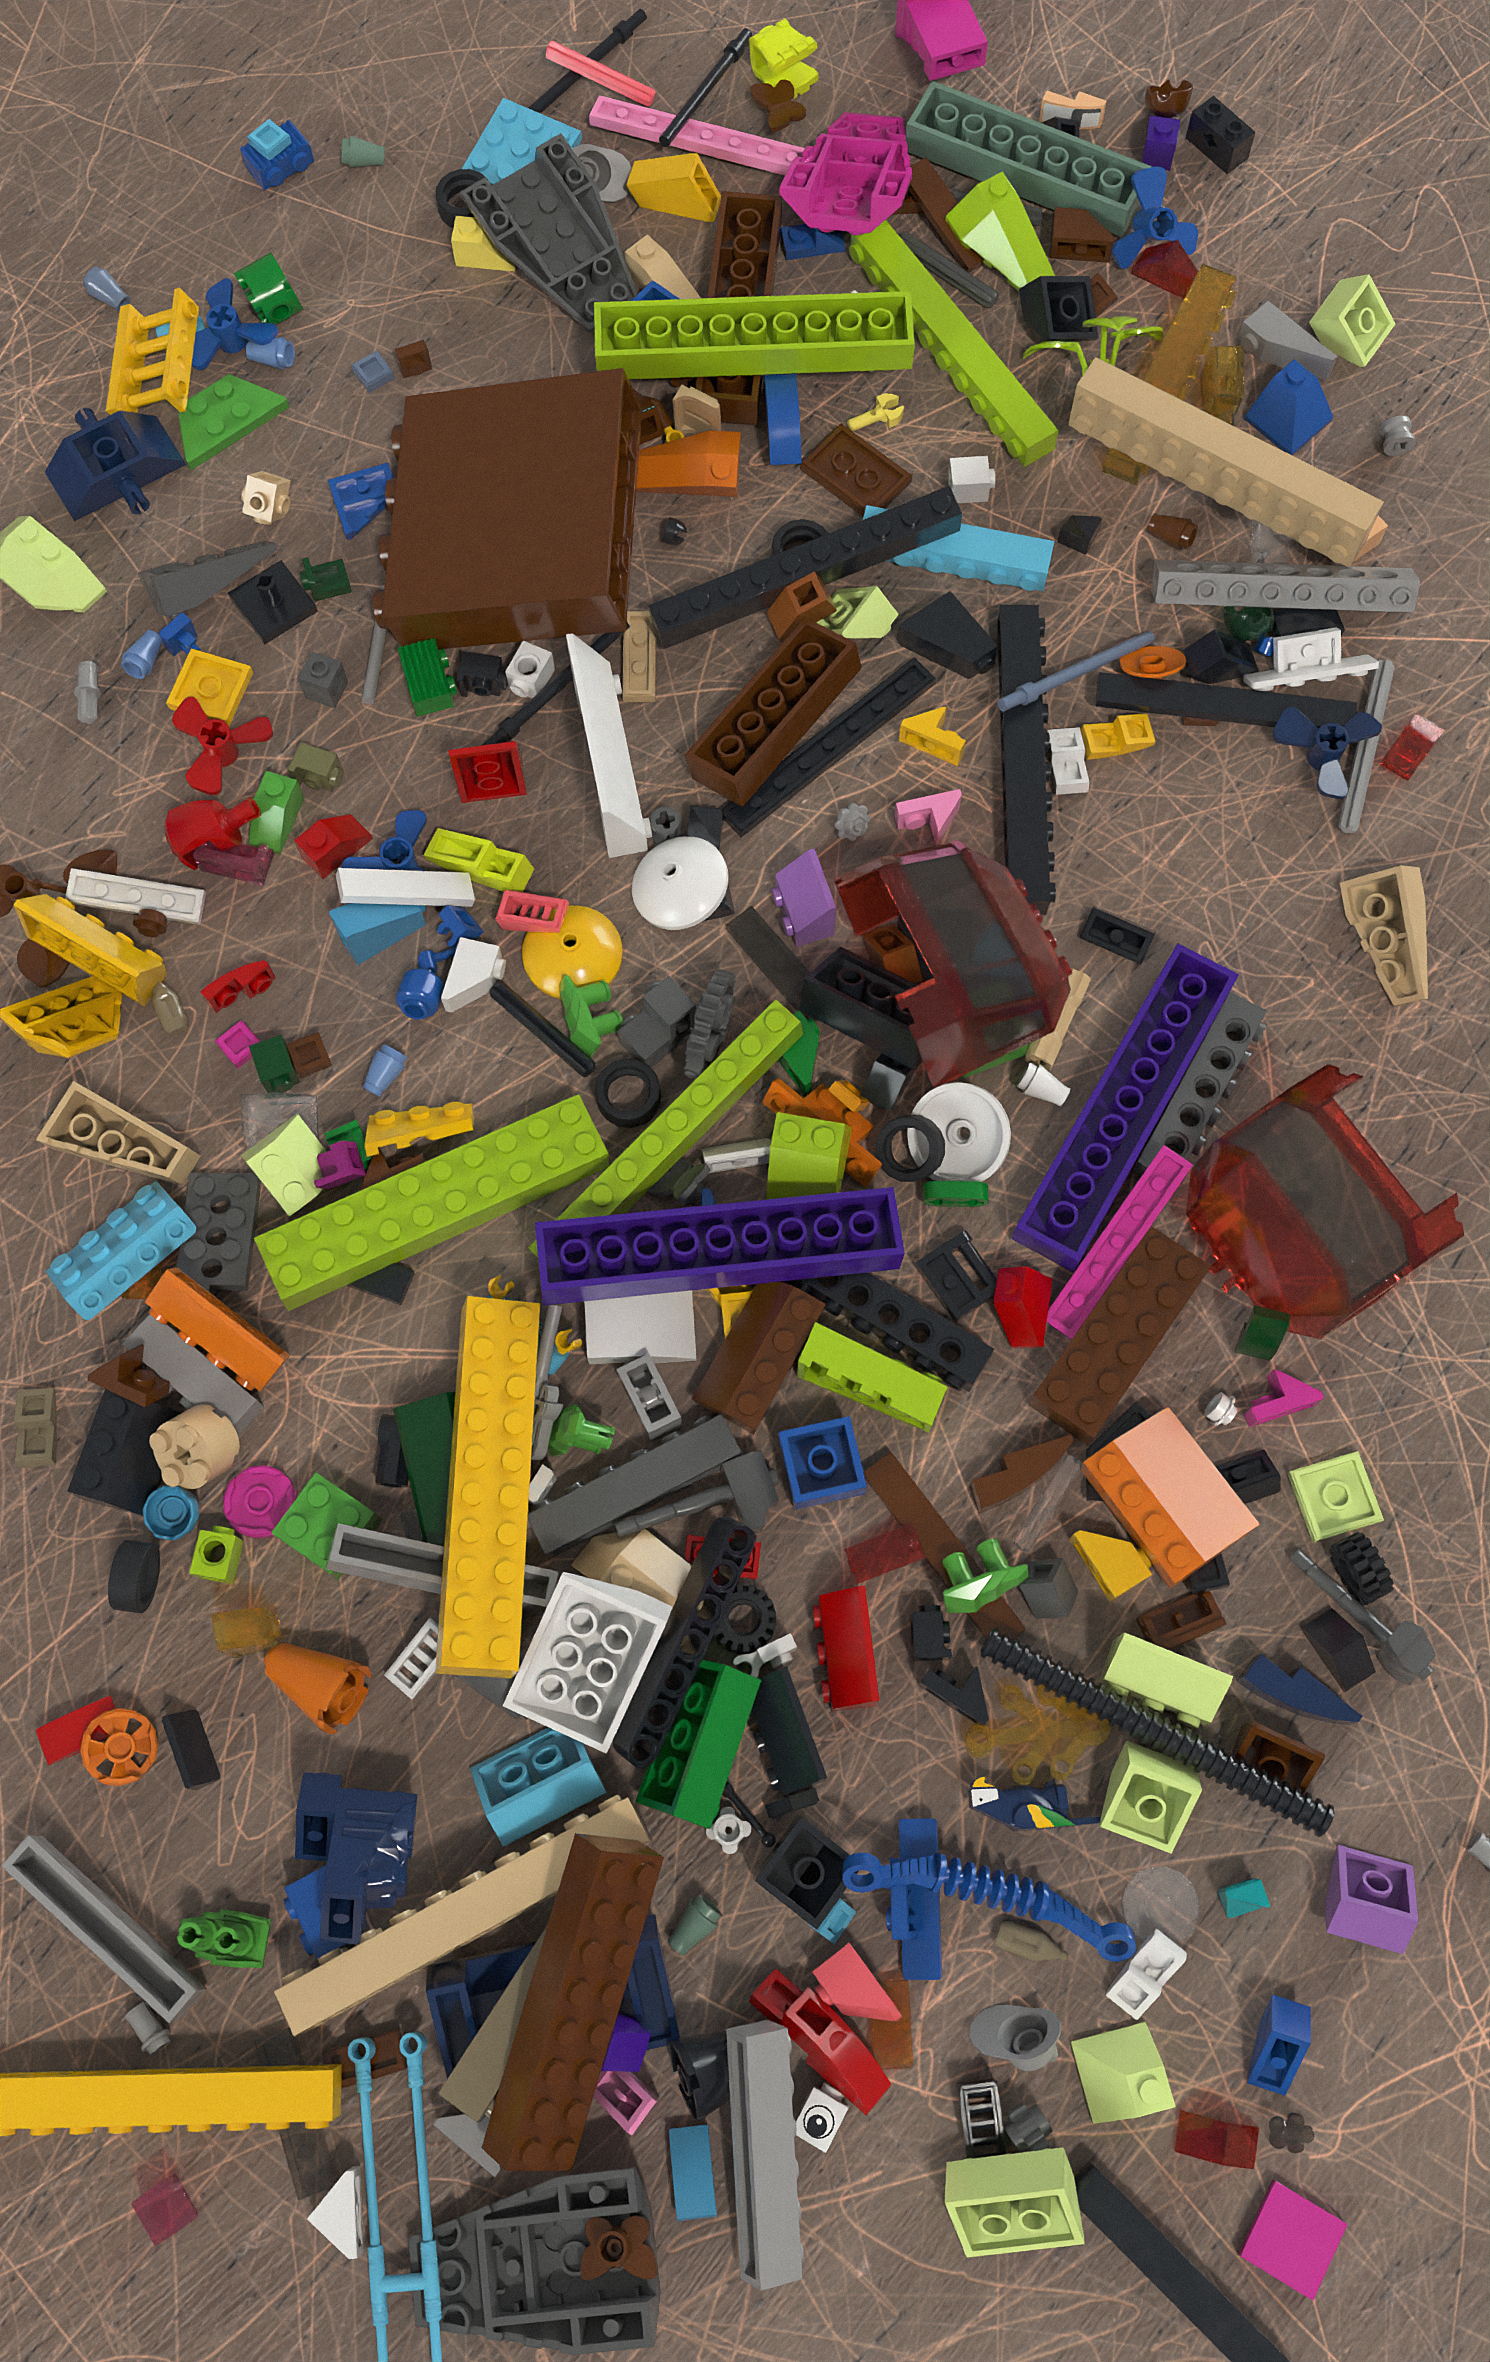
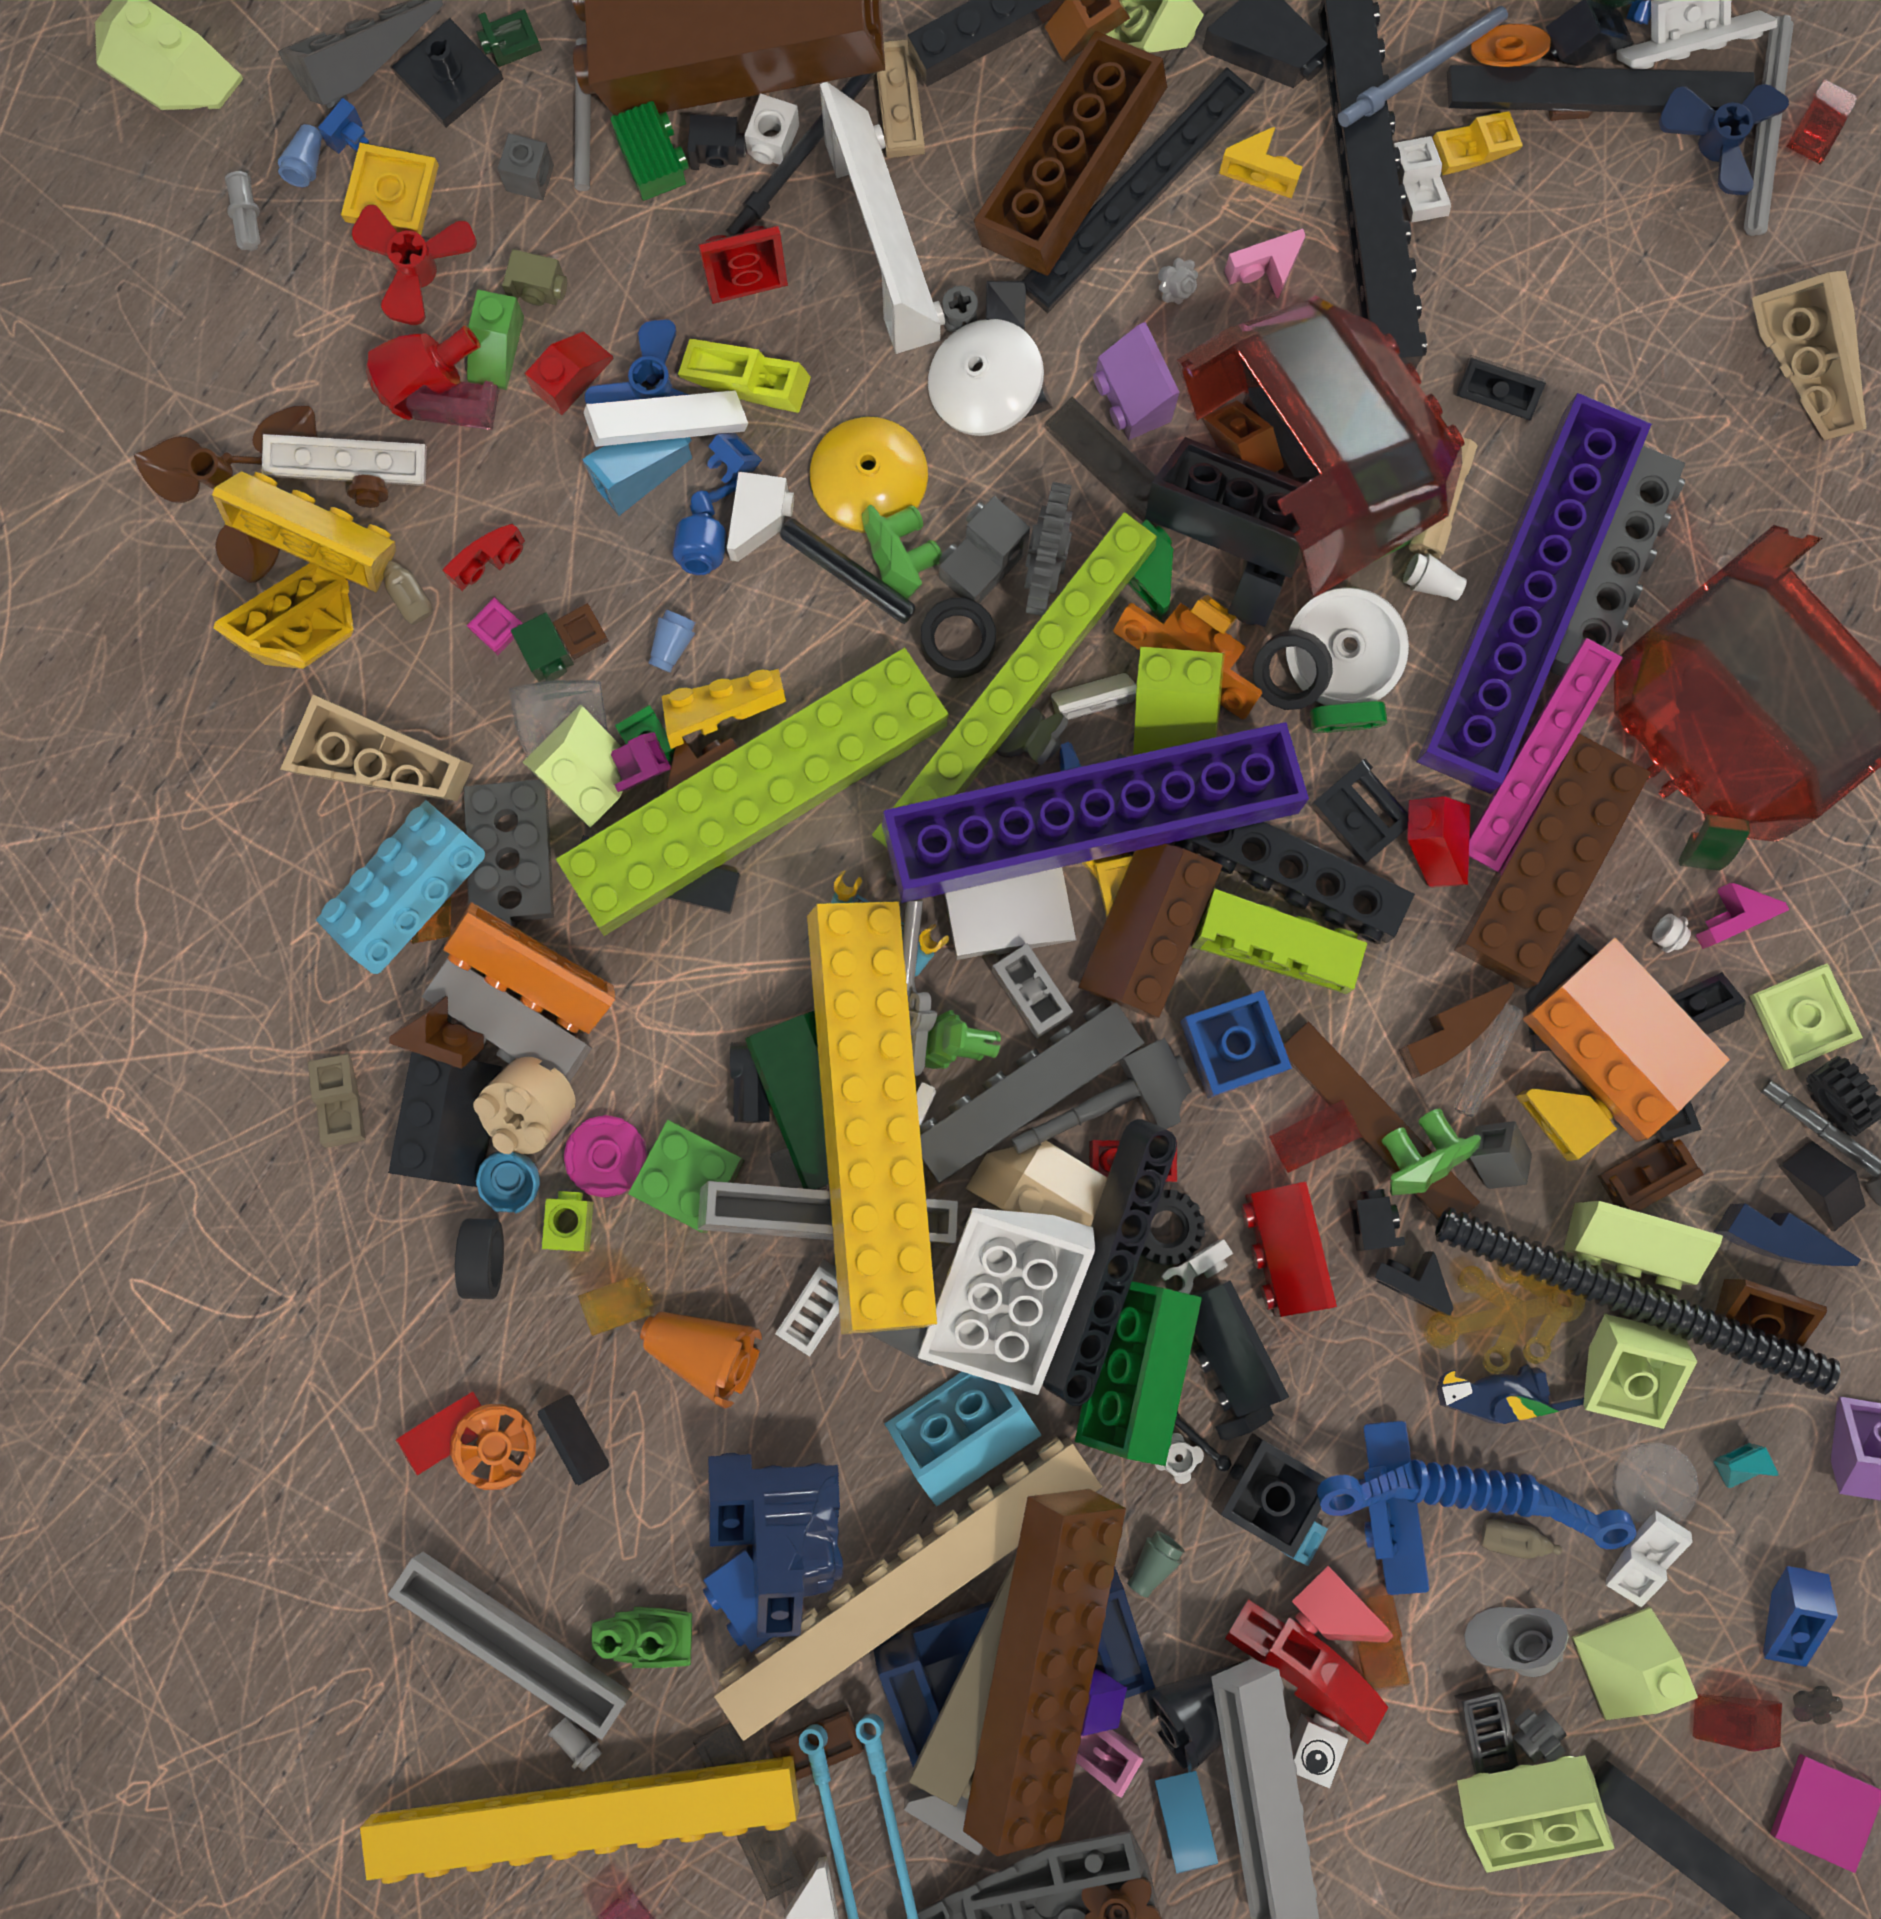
camera: 10 degrees left, 10 degrees up
(512, 900) = (806, 418): coral slope -> none

